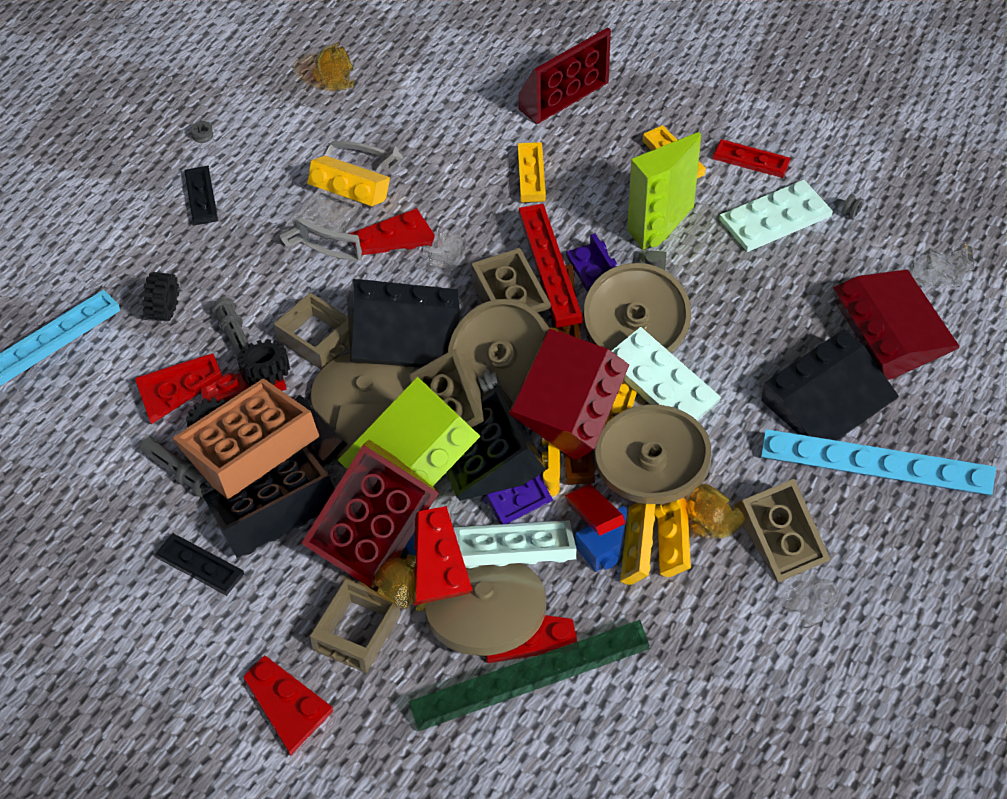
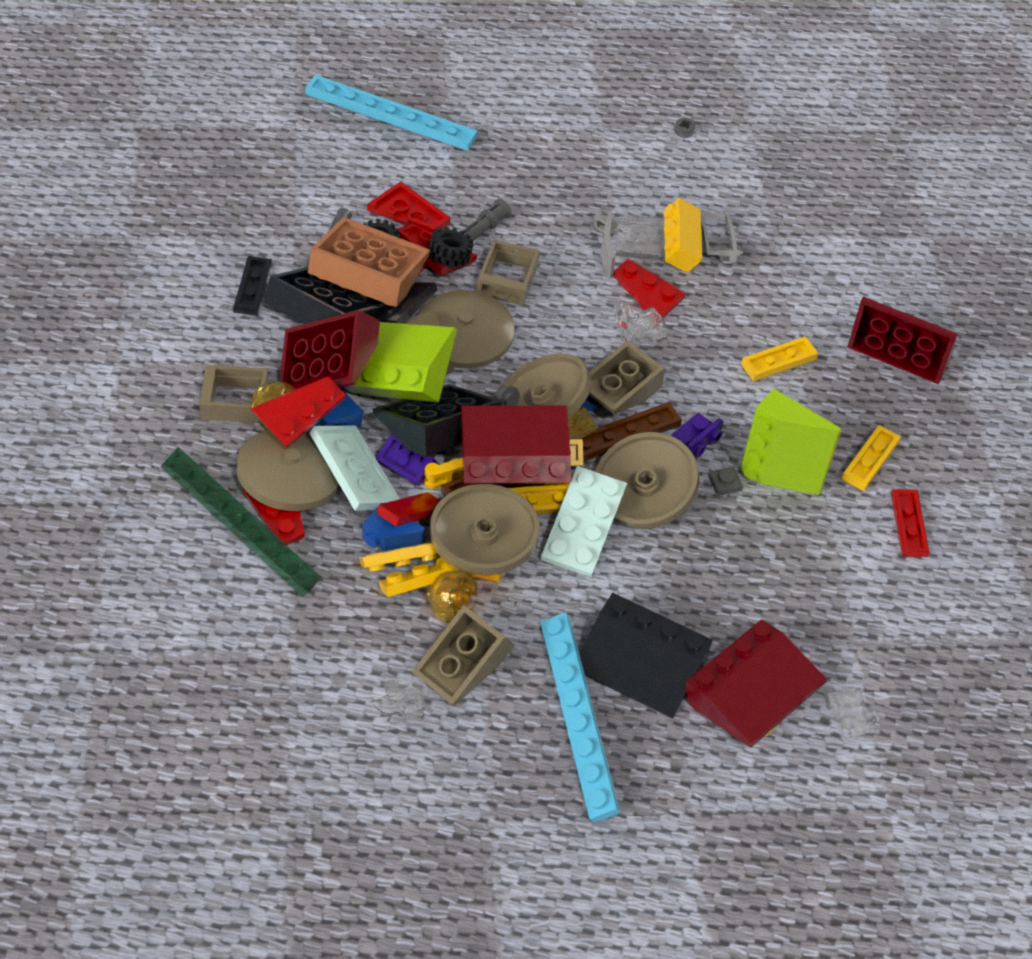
camera: 60 degrees right, 0 degrees up
(160, 296) = (482, 154): black tyre -> none
(201, 195) = (615, 153): black tile -> none
(286, 702) = (153, 379): red wing -> none
(332, 66) = (811, 177): clear yellow cylinder -> none
(400, 322) = (538, 316): black slope -> none
(455, 383) = (482, 372): dark tan slope -> none
(550, 265) = (664, 399): red plate -> none
(775, 215) = (846, 561): light aqua plate -> none
(852, 206) = (893, 619): dark grey bush -> none

